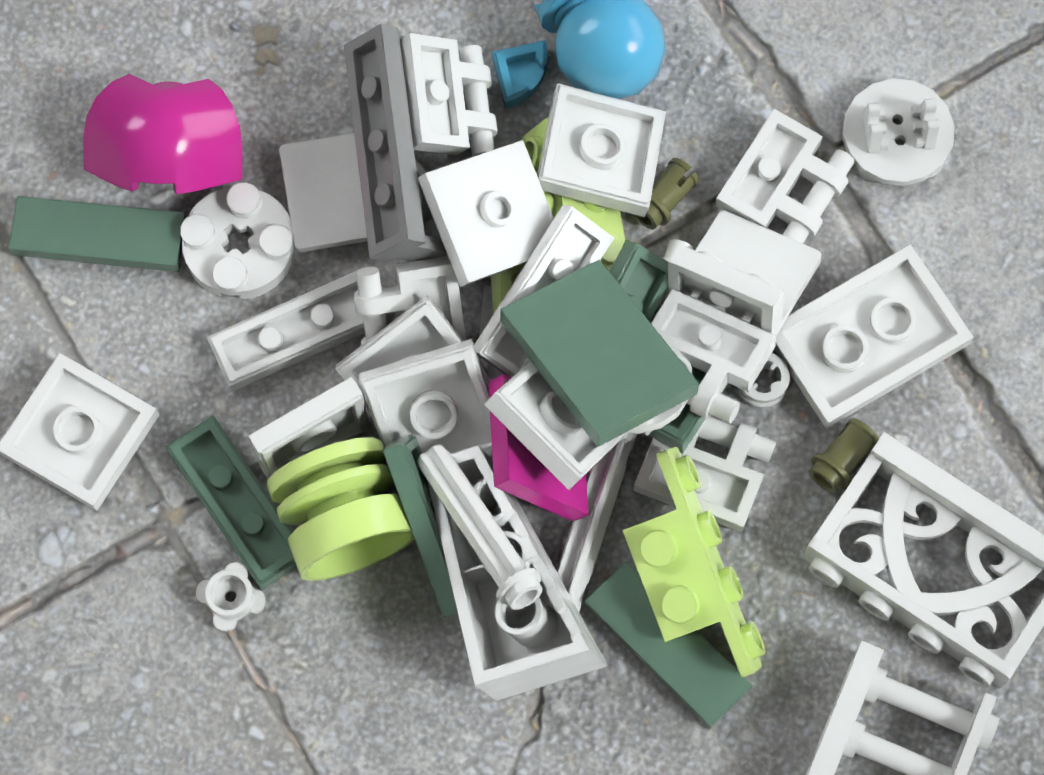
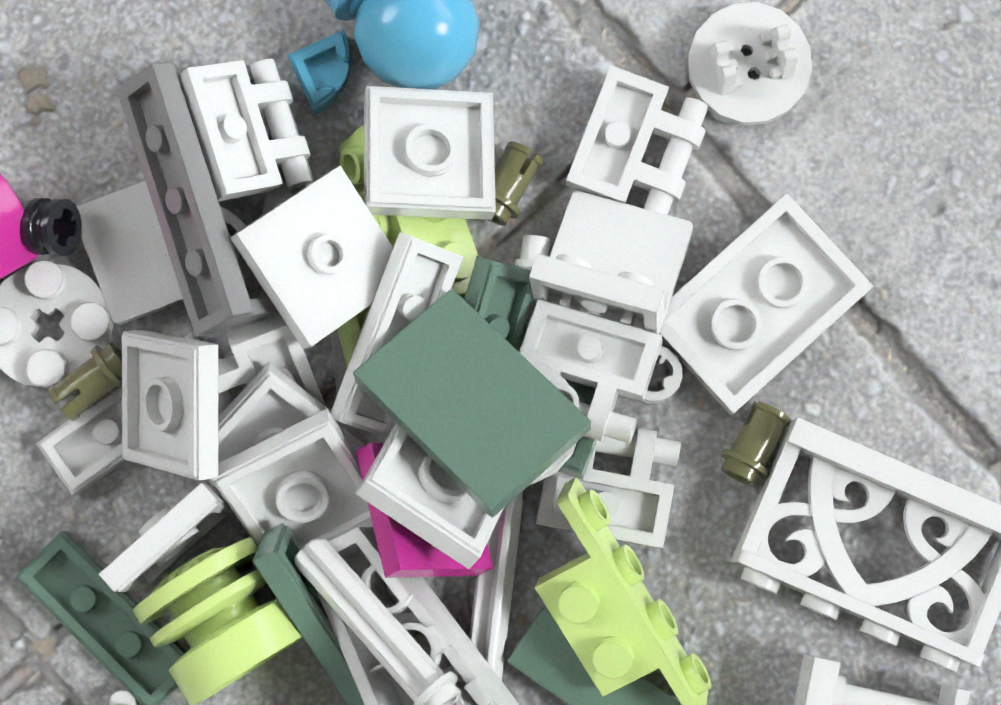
camera: 15 degrees left, 10 degrees up
(260, 154) = (51, 226): none -> black bush
(269, 290) = (92, 378): none -> olive pin
(335, 312) = (170, 403): none -> white plate

